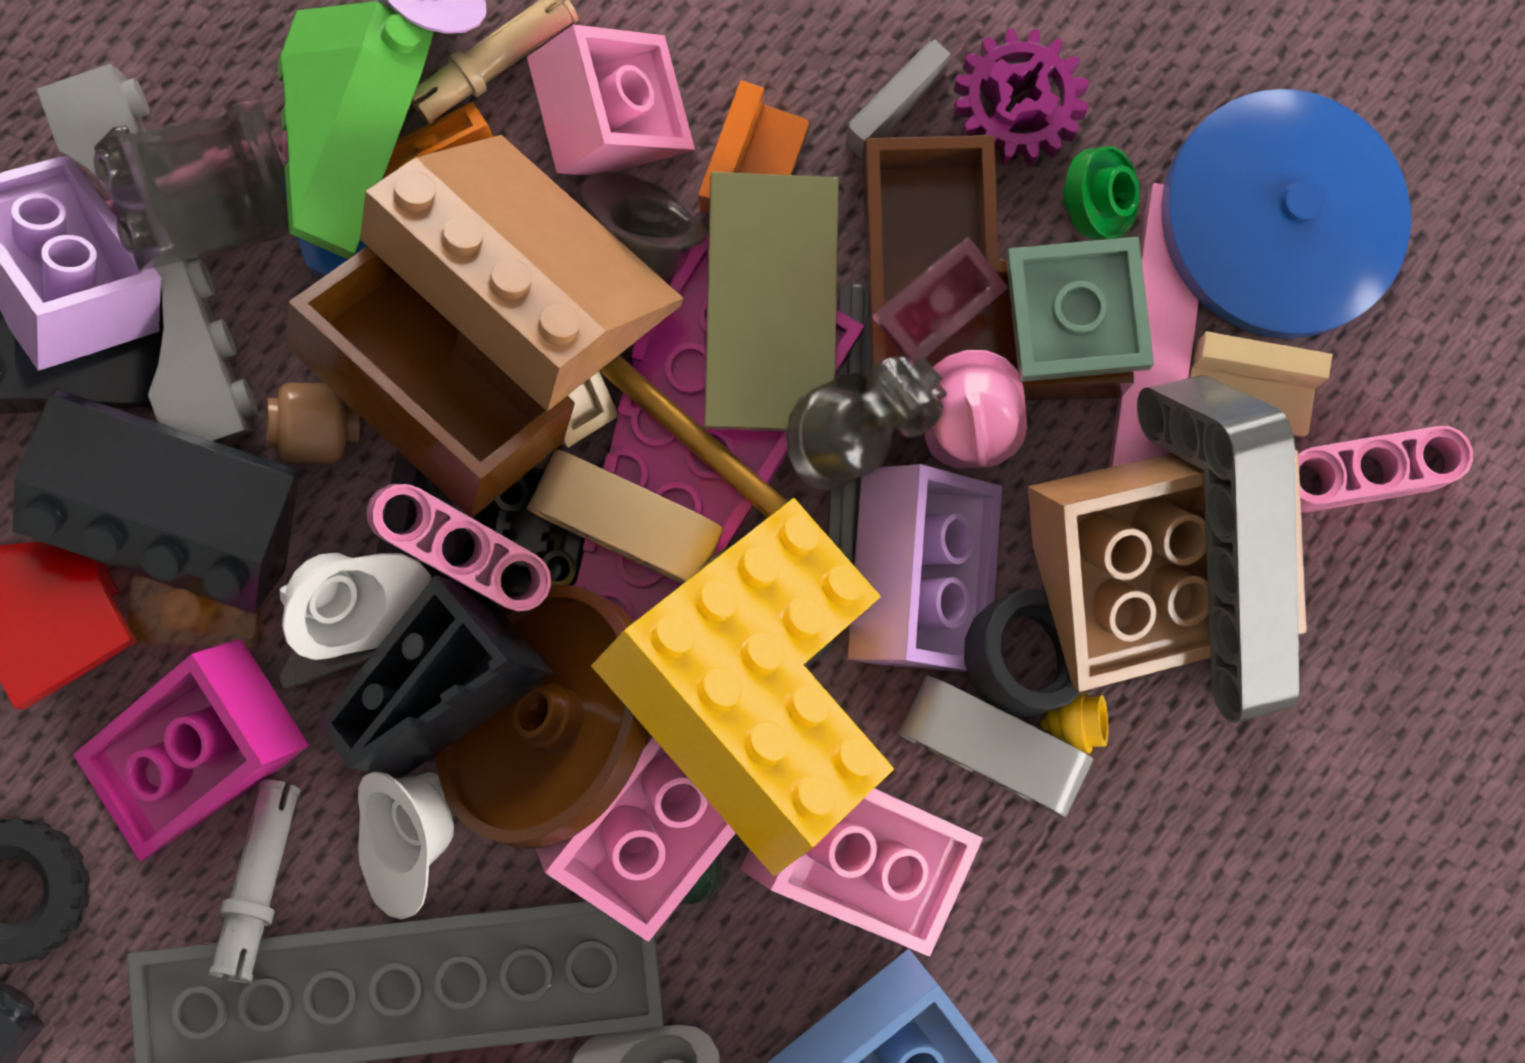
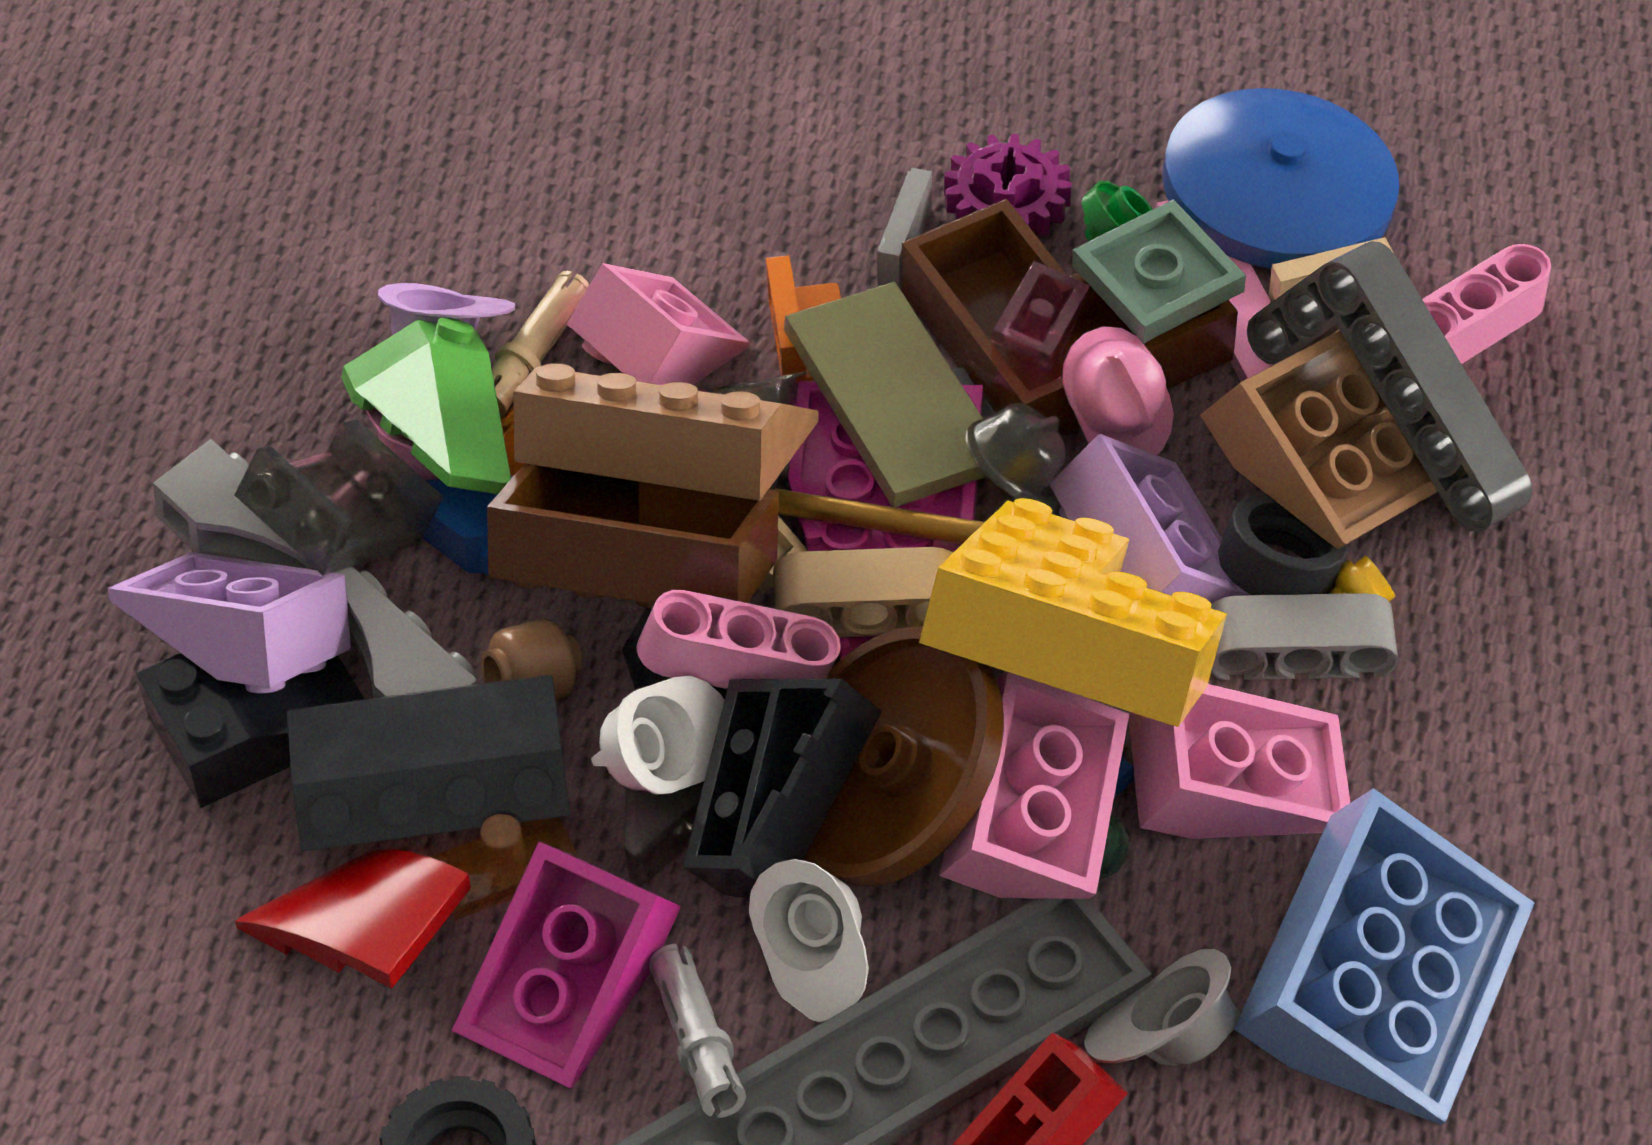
camera: 25 degrees left, 30 degrees down
(904, 396) = (1055, 379): clear smoke gear -> none

